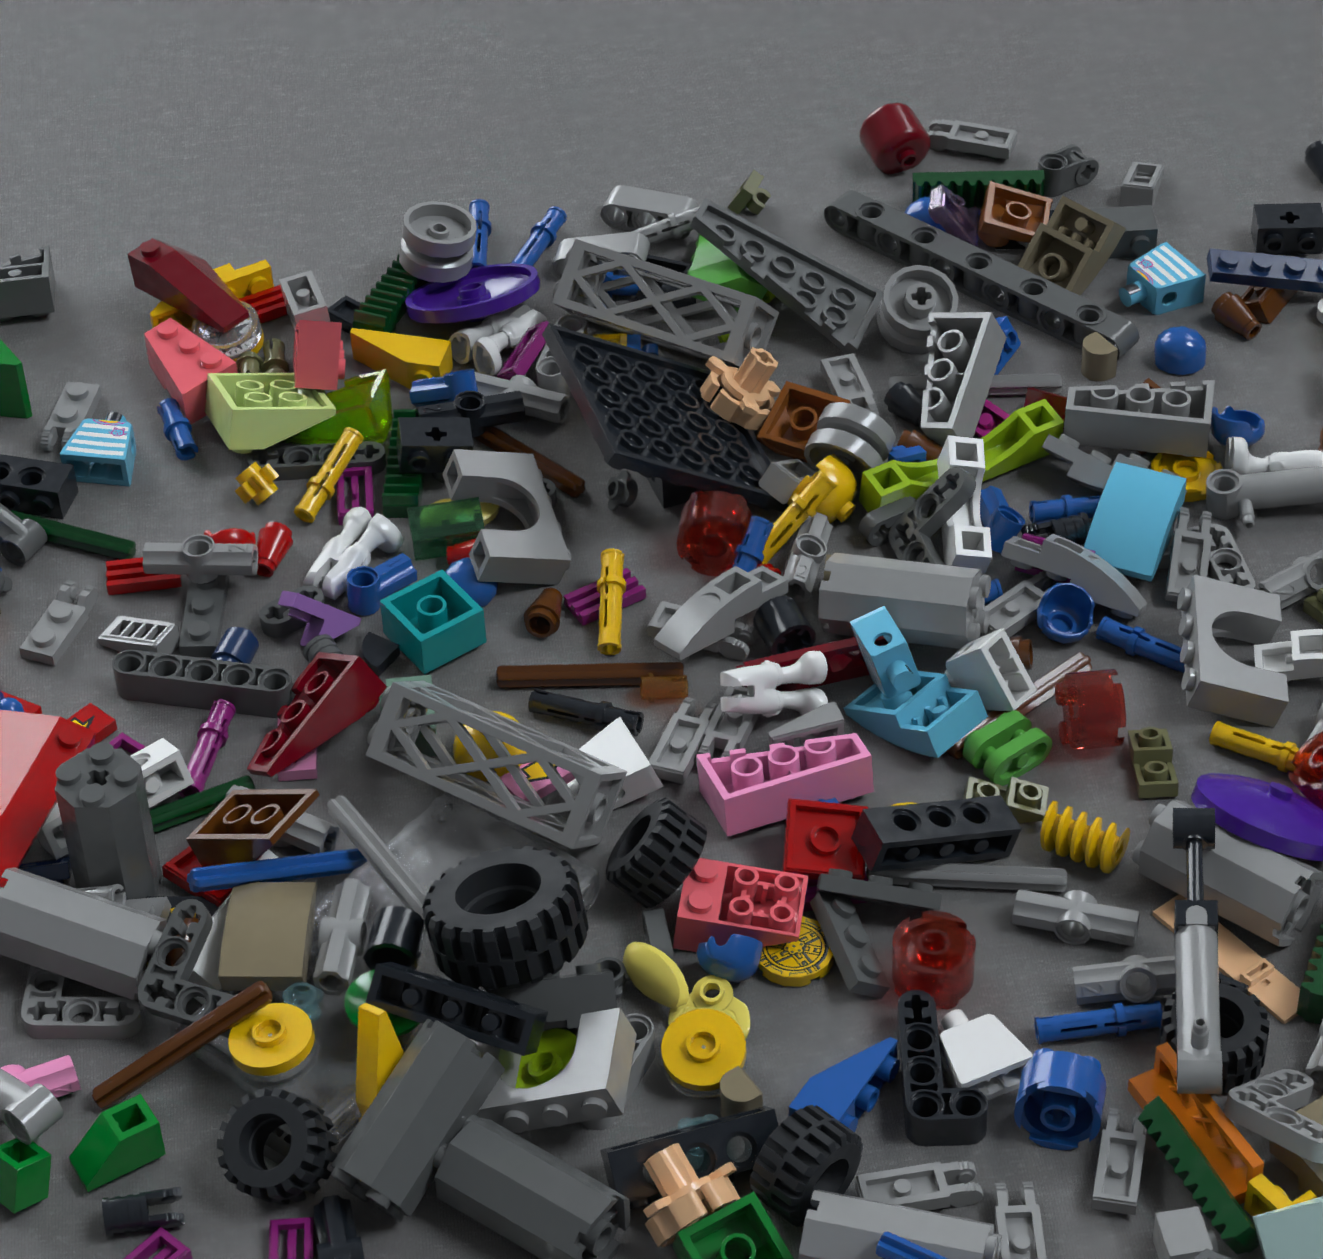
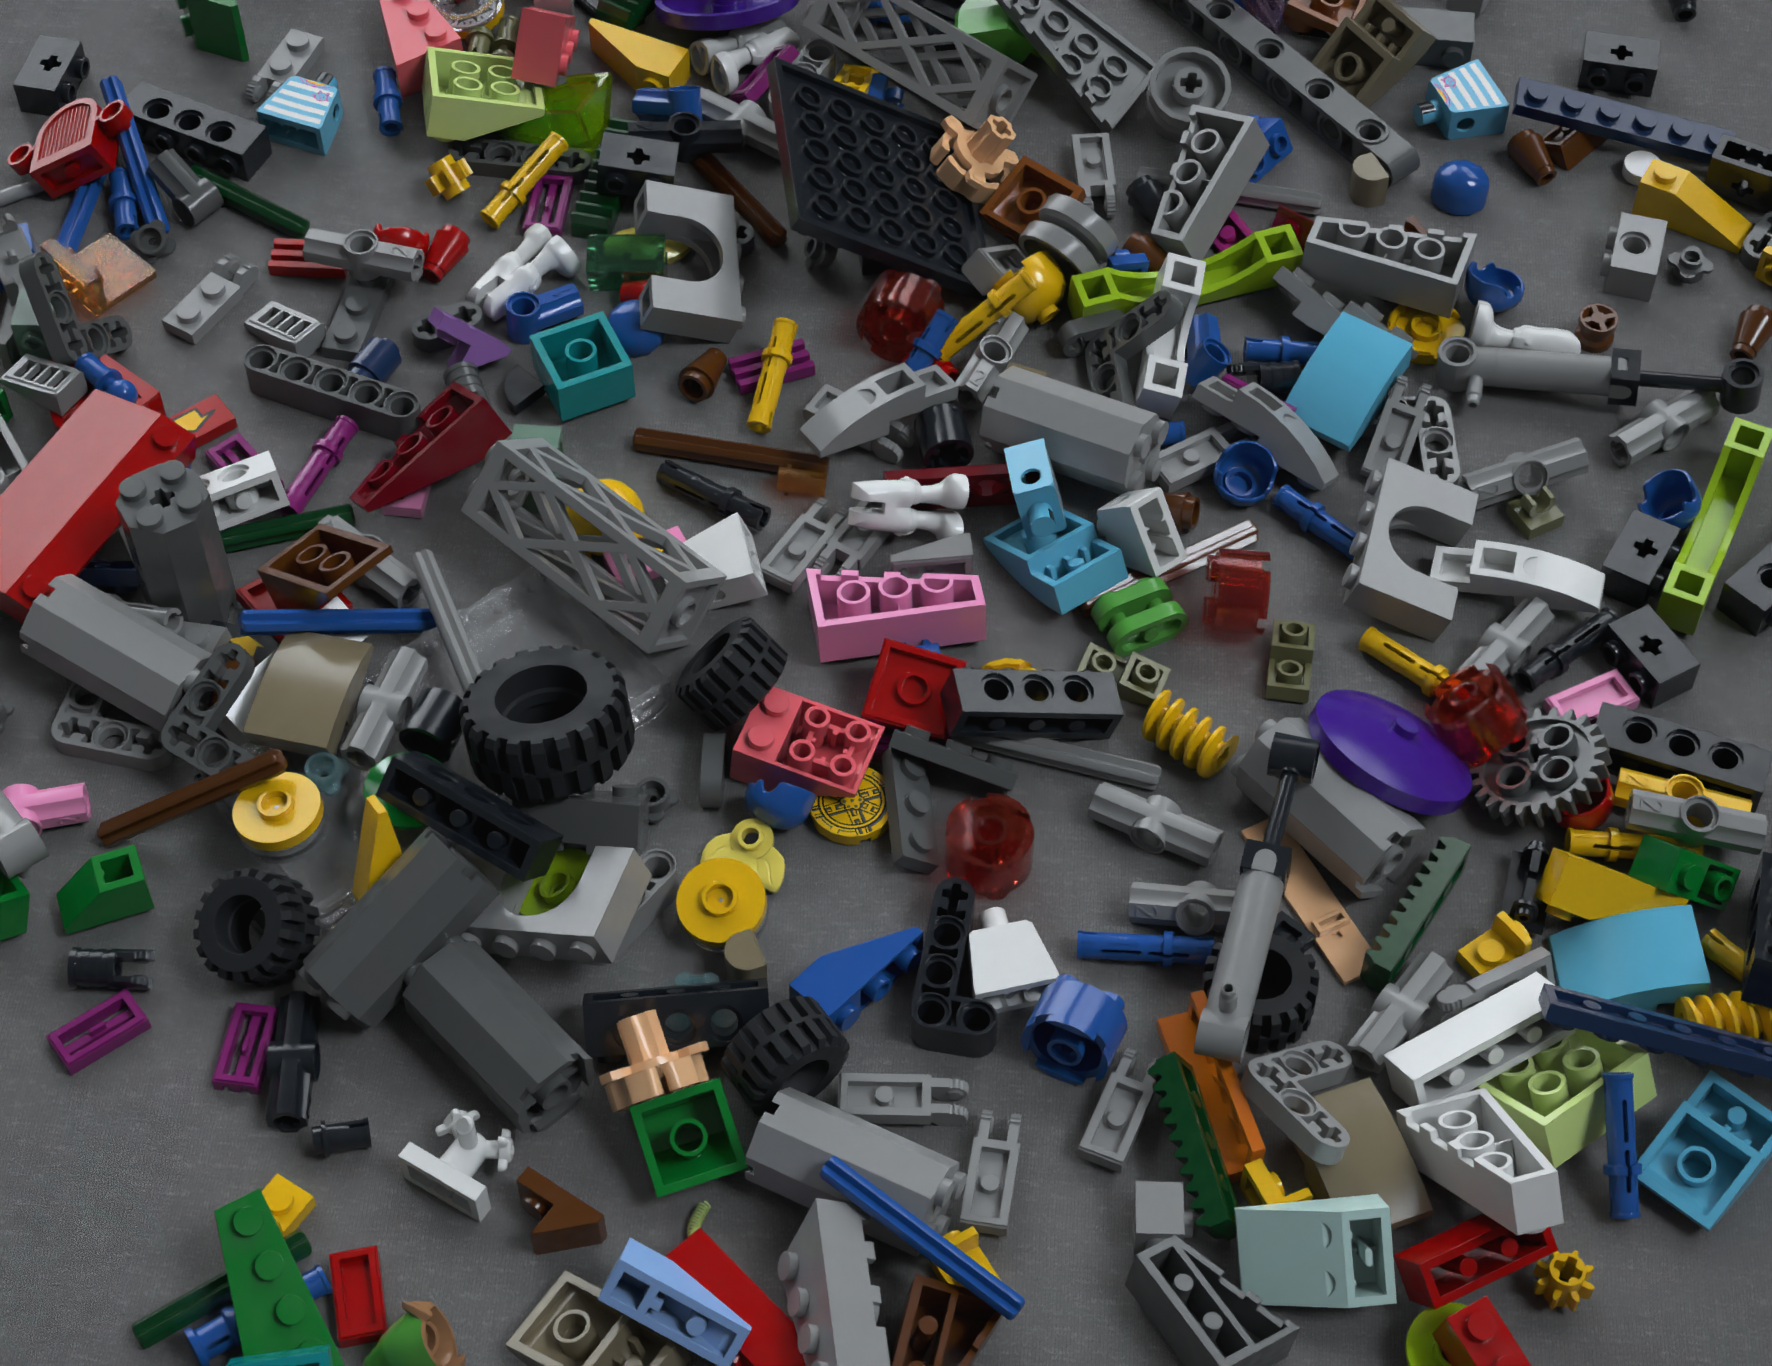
camera: 10 degrees right, 10 degrees up
(655, 974) = (697, 807): light yellow arm -> none

